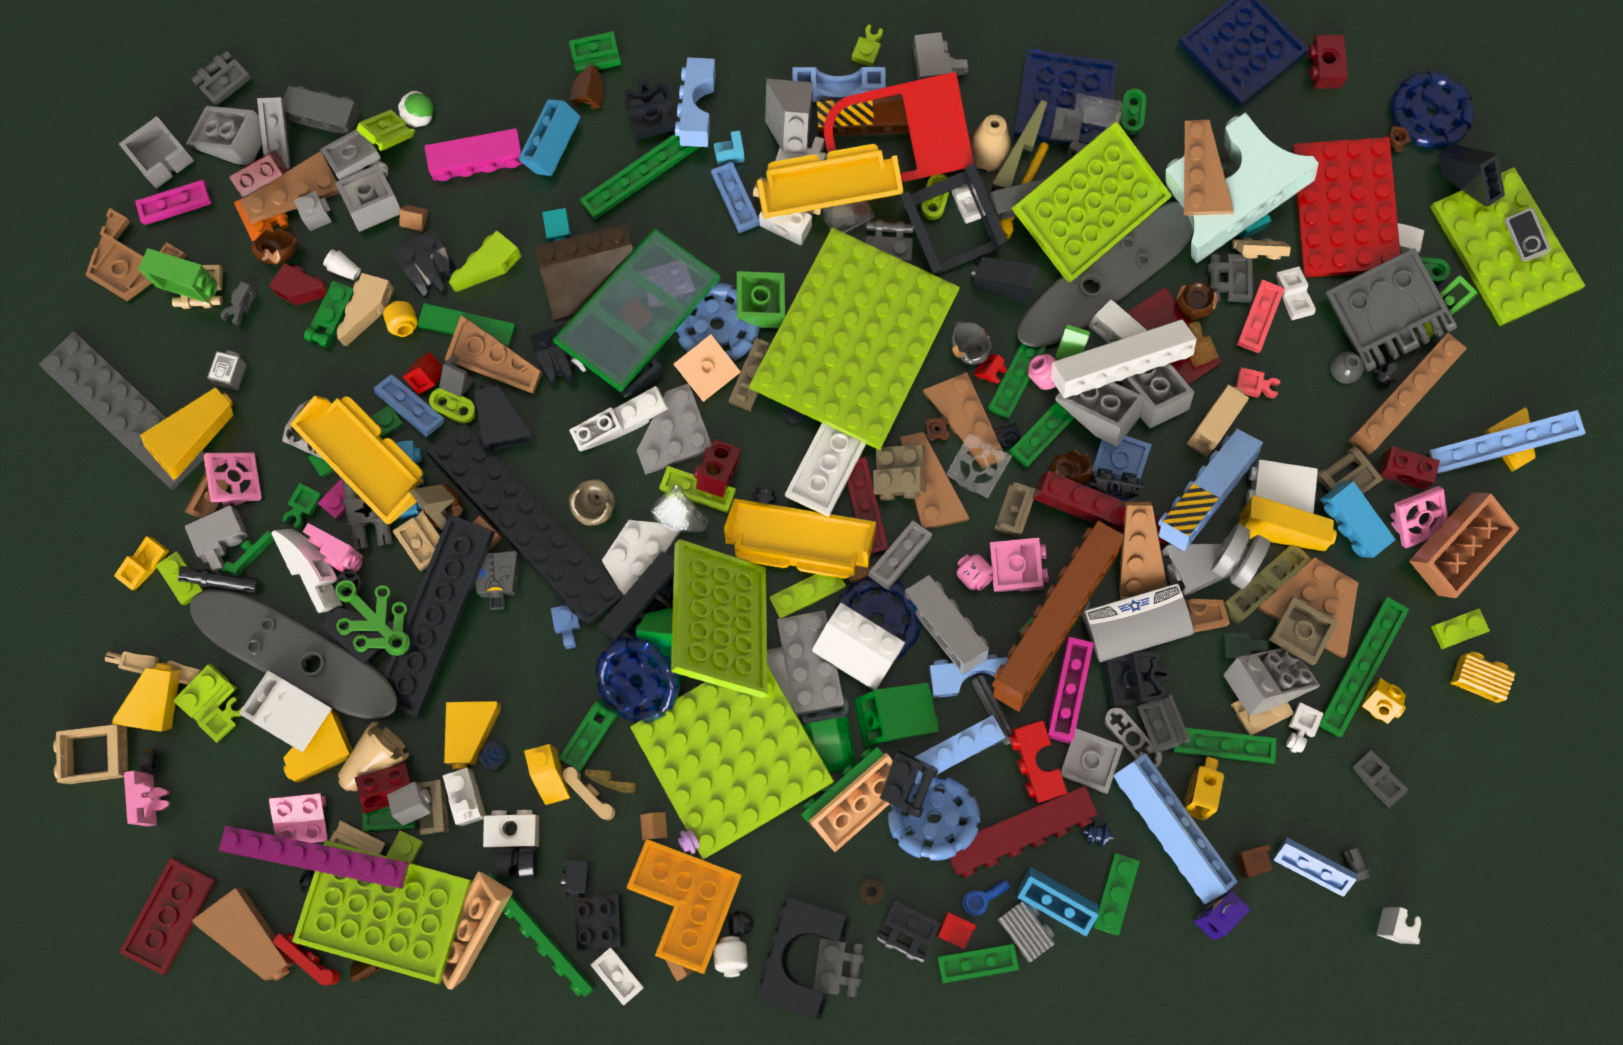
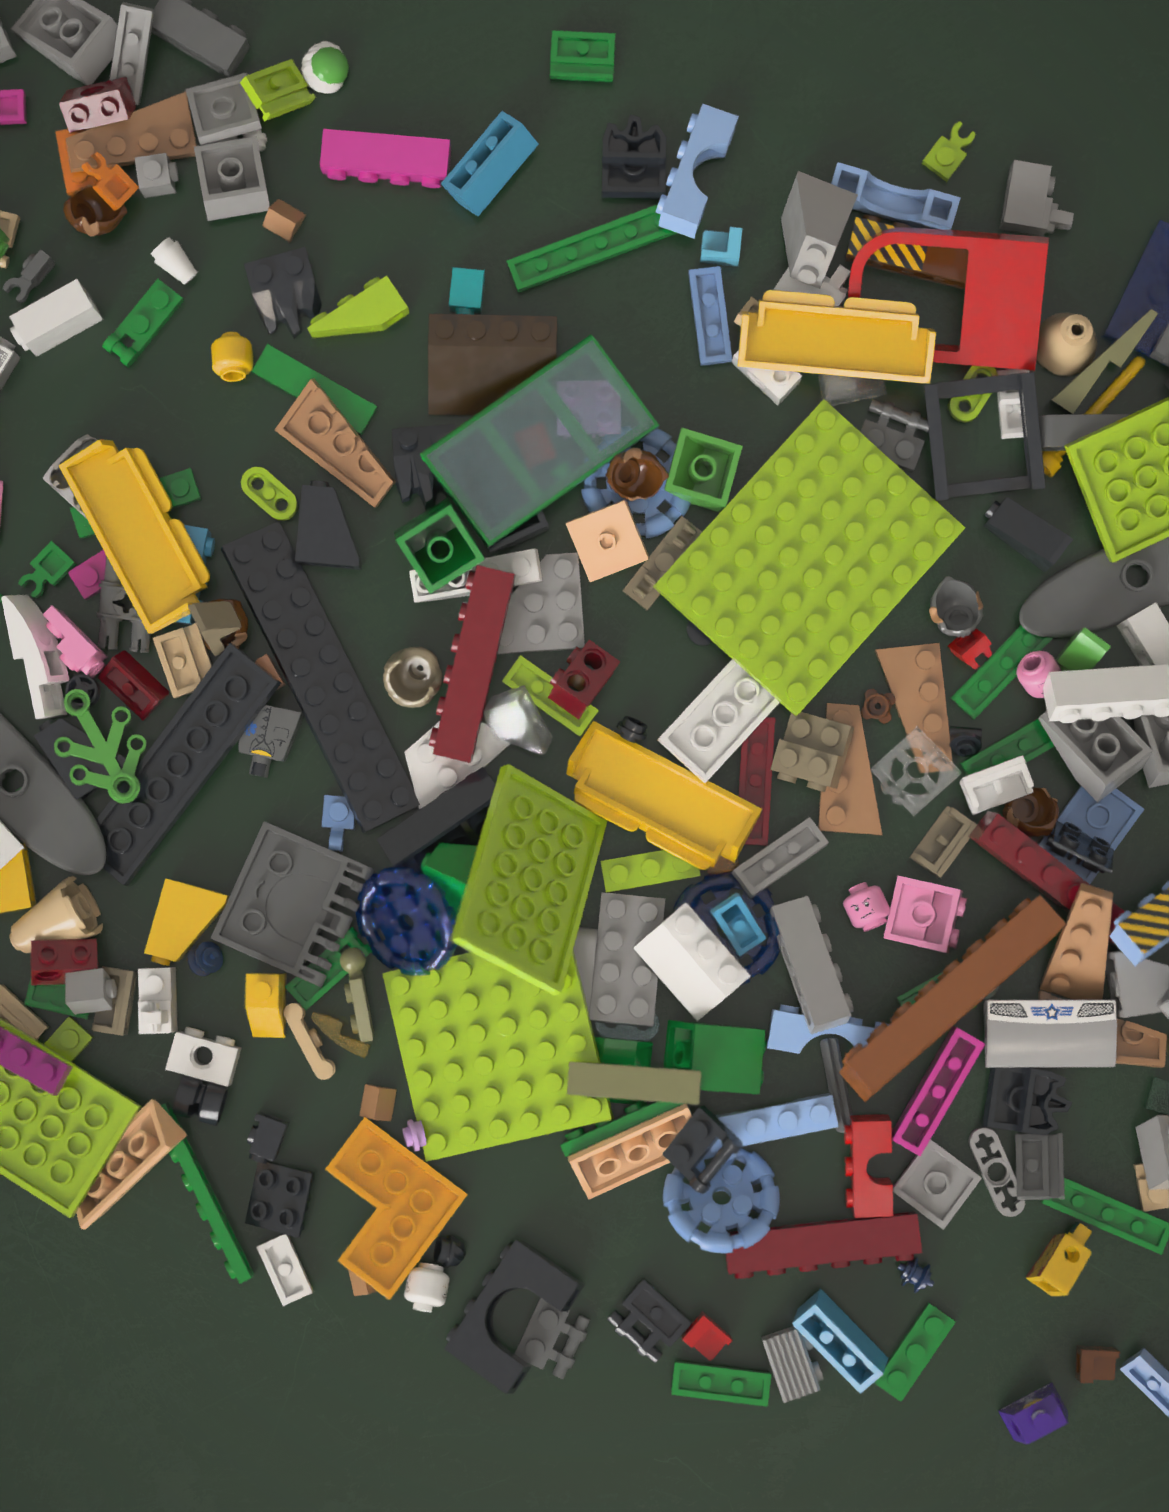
camera: 20 degrees right, 10 degrees up
(263, 325) = (54, 318): none -> white brick
(281, 221) = (112, 183): none -> orange plate
(296, 286) = (109, 274): dark red slope -> none
(367, 304) = (194, 325): tan slope -> none
(387, 570) = (133, 684): none -> dark red slope
(409, 405) = (213, 477): medium blue plate -> none
(423, 373) = (243, 439): red panel -> none
(453, 378) = (281, 462): dark grey panel -> none
(542, 694) = (287, 900): none -> dark grey hinge
(584, 400) = (438, 545): none -> green slope
(588, 88) = (559, 104): reddish brown brick -> none
(604, 722) = (353, 961): none -> olive plate
(634, 478) = (473, 664): none -> dark red brick
(713, 313) = (636, 474): none -> reddish brown hair
(842, 746) = (634, 1082): none -> olive slope
(863, 891) = (619, 1249): dark brown plate -> none
(883, 608) = (738, 924): none -> dark azure slope
(976, 901) = (741, 1310): blue plate -> none
(1040, 455) = (997, 785): none -> white hinge
(1175, 829) = (1011, 1297): light blue brick -> none

